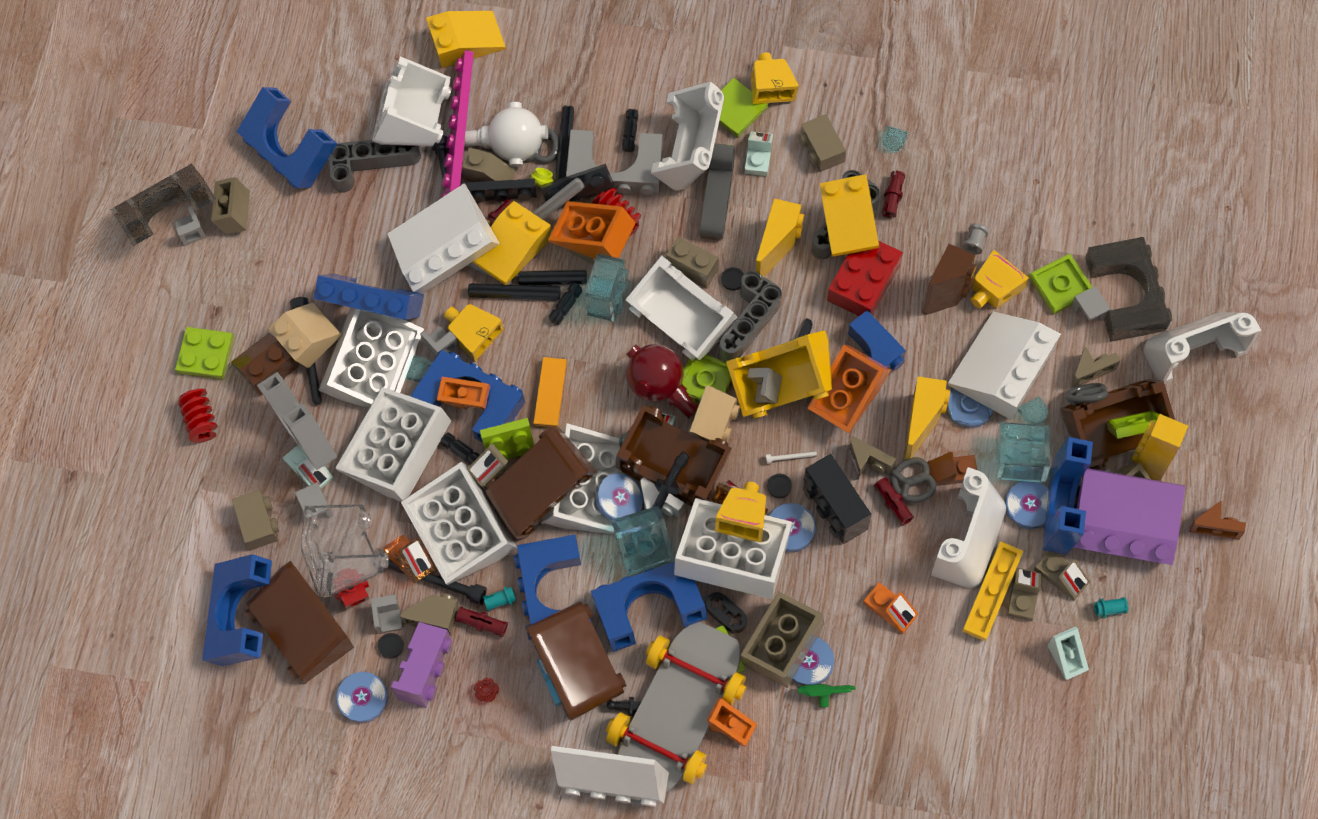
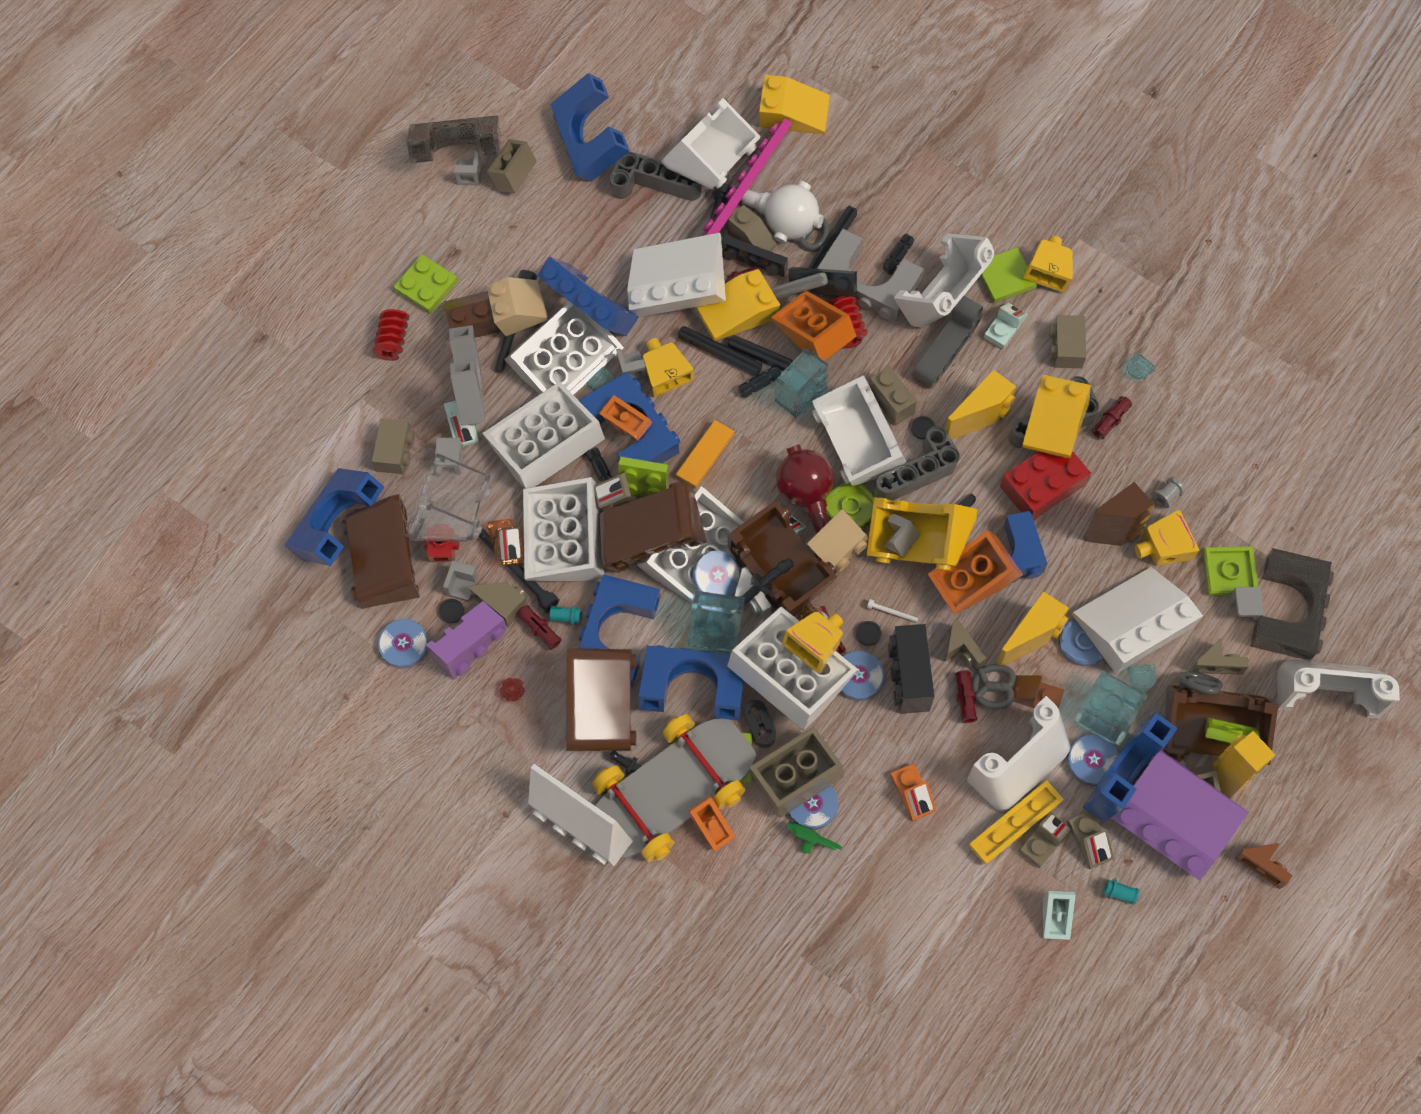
camera: 25 degrees right, 0 degrees up
(542, 176) = (796, 259): neon yellow plate -> none

